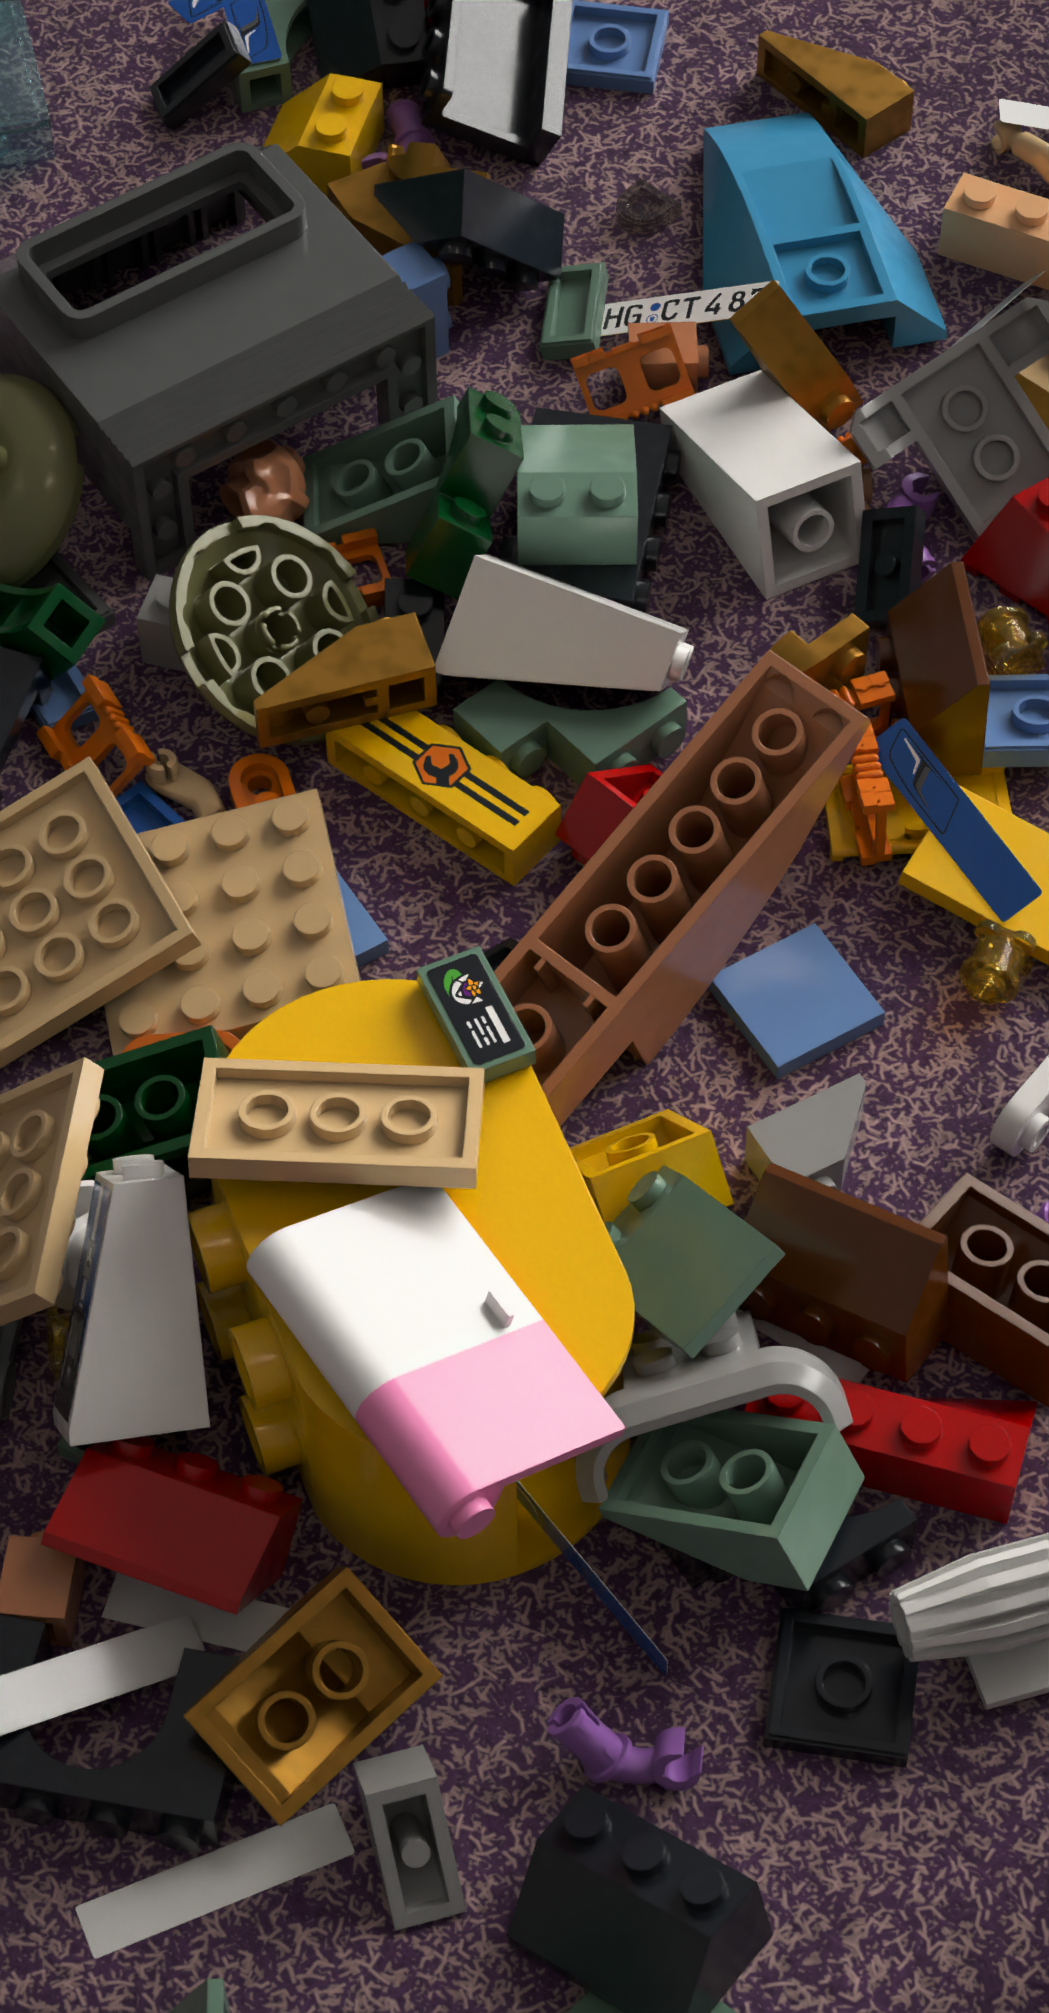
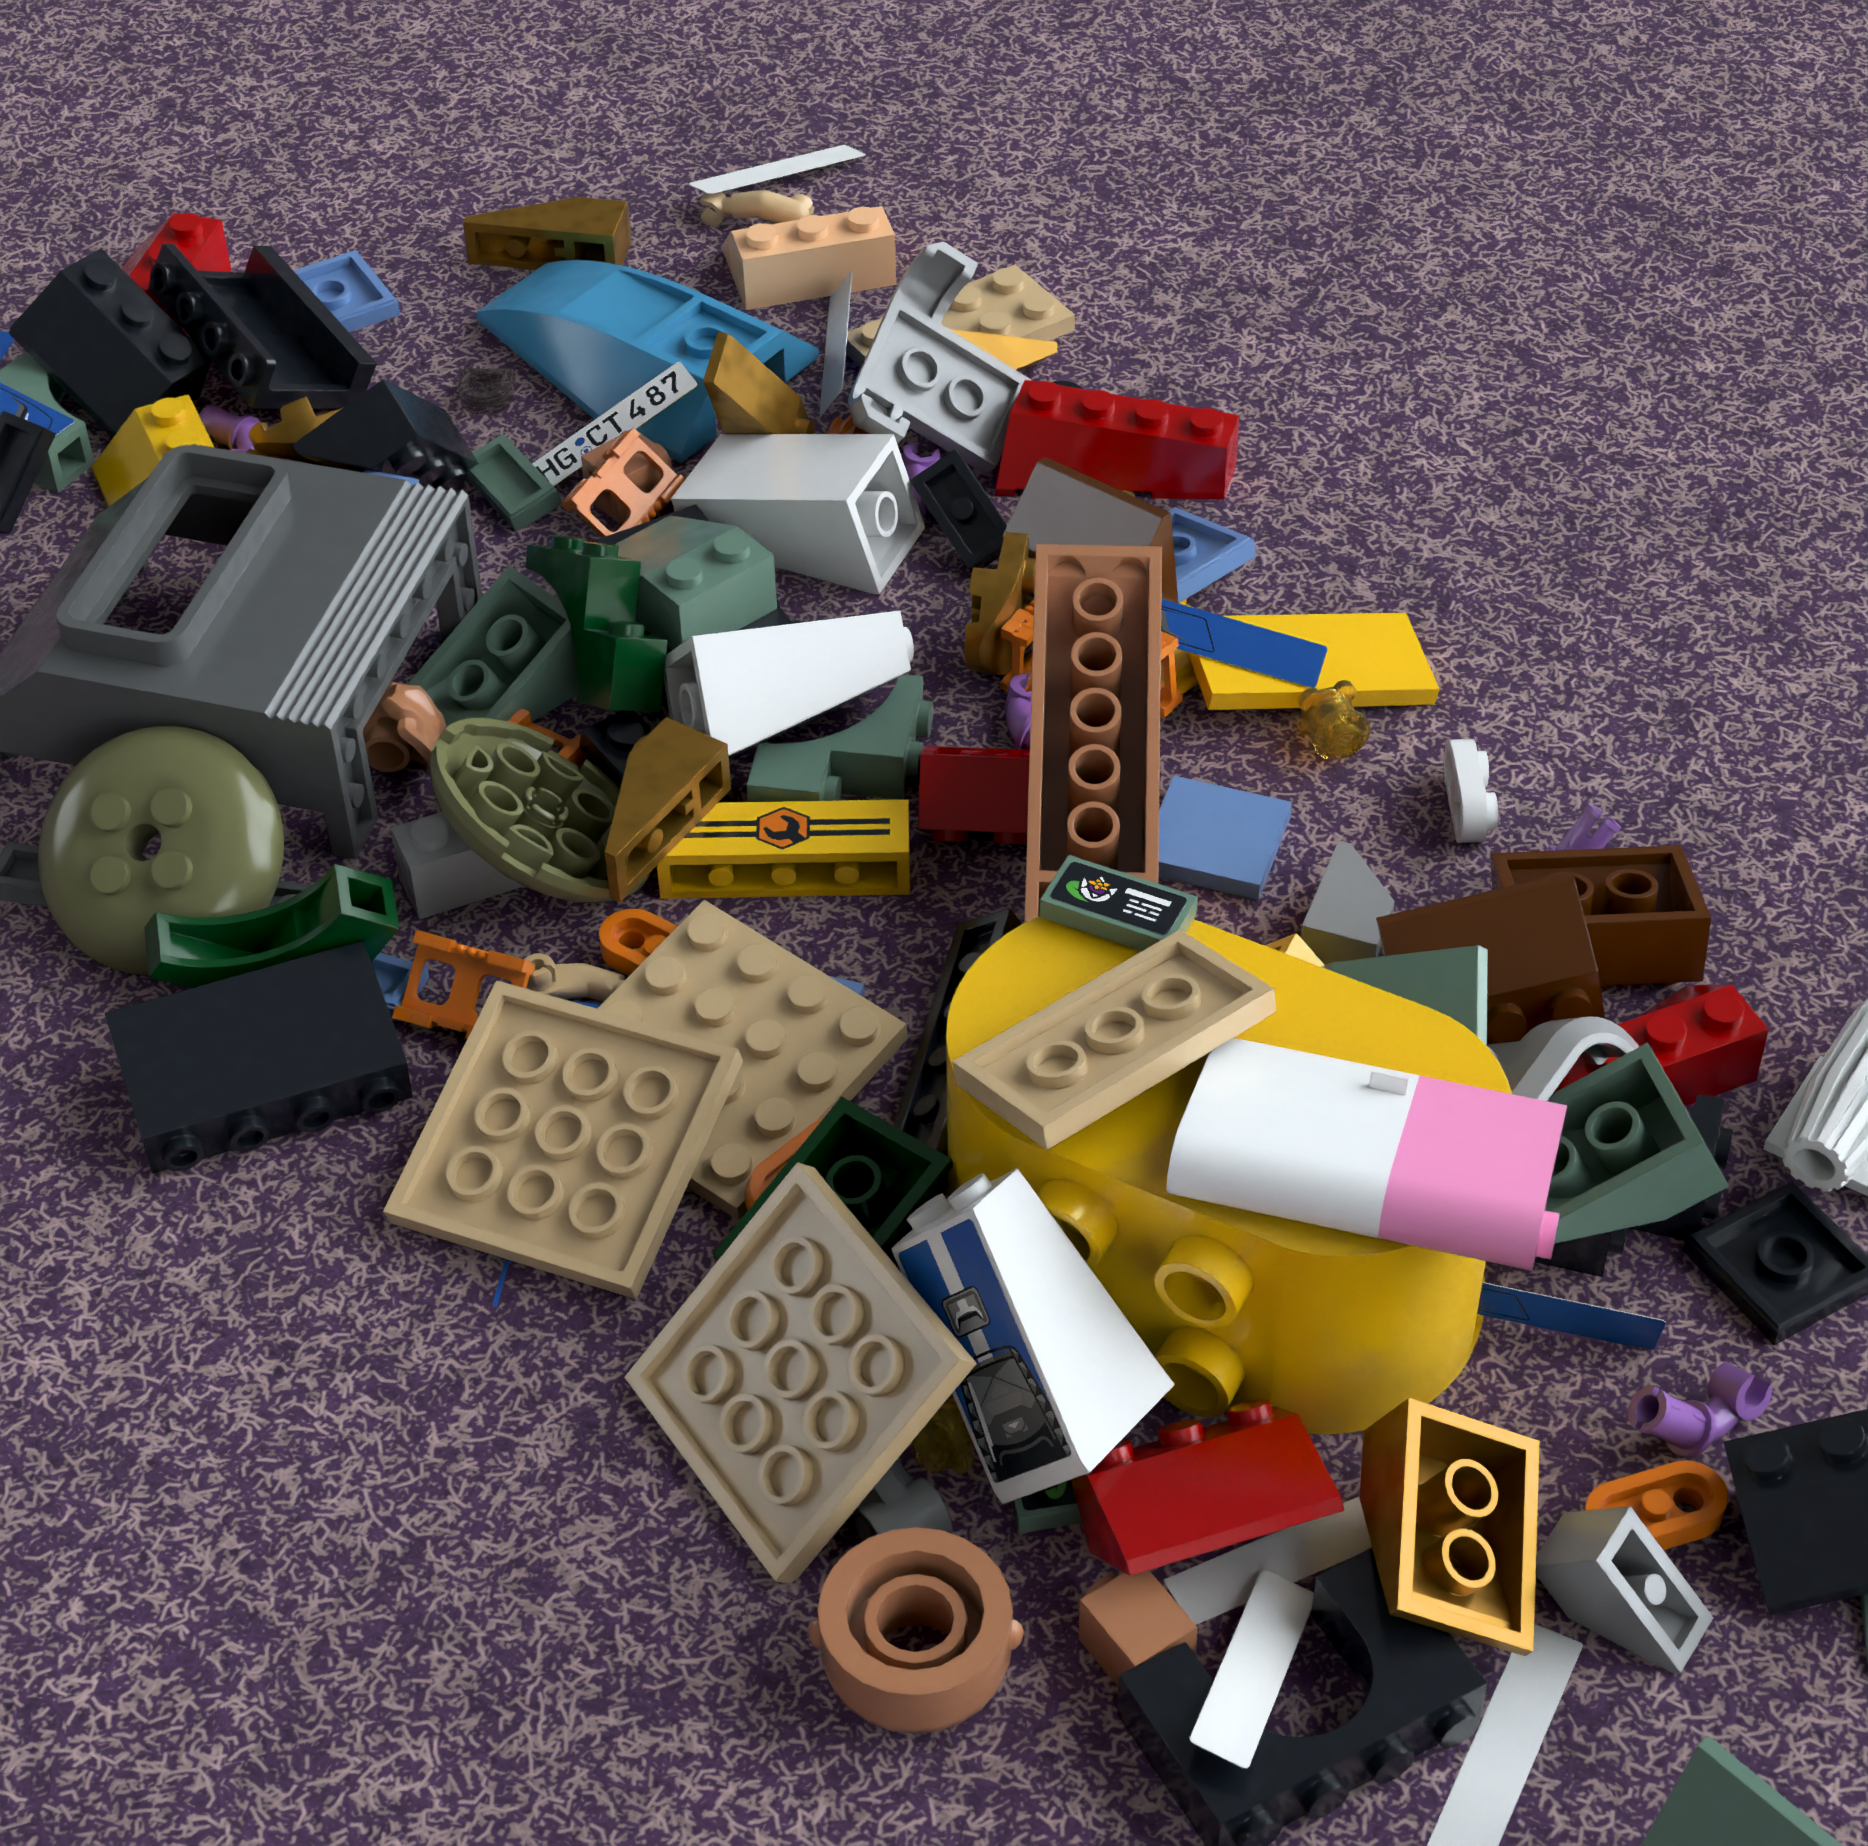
camera: 40 degrees left, 10 degrees down
(509, 1794) = (1654, 1497): none -> orange plate

